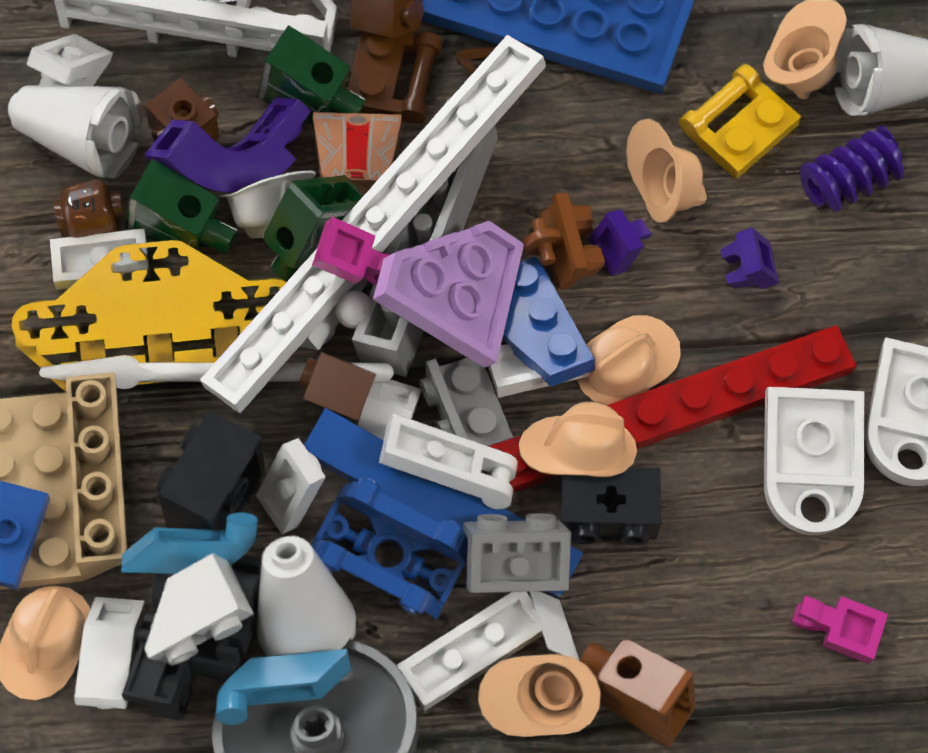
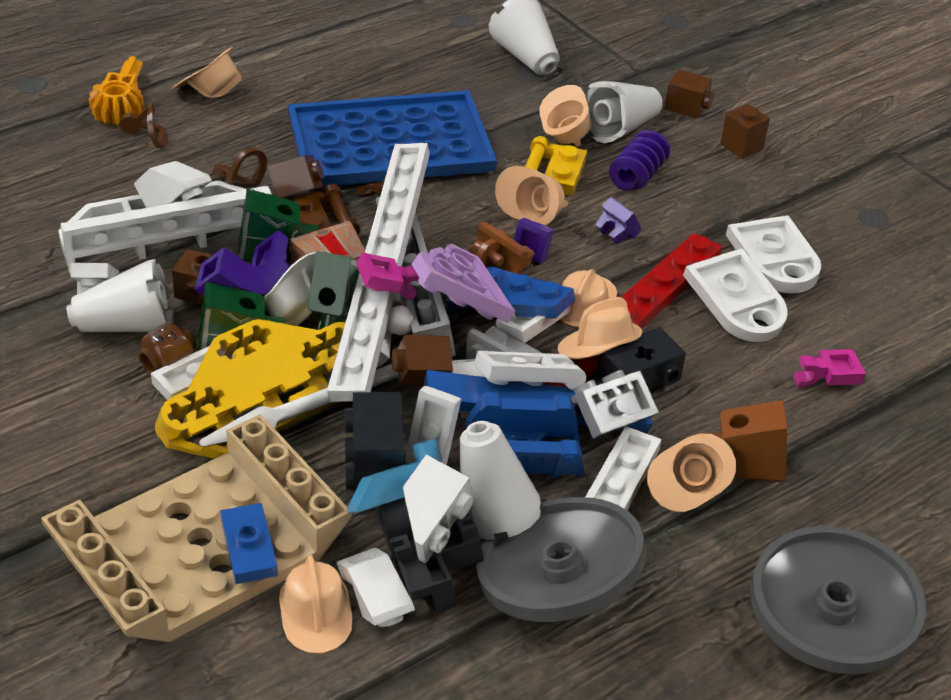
camera: 30 degrees left, 25 degrees down
(279, 681) = (515, 537): dark azure piece -> none
(553, 624) = (659, 435): white sticker -> none

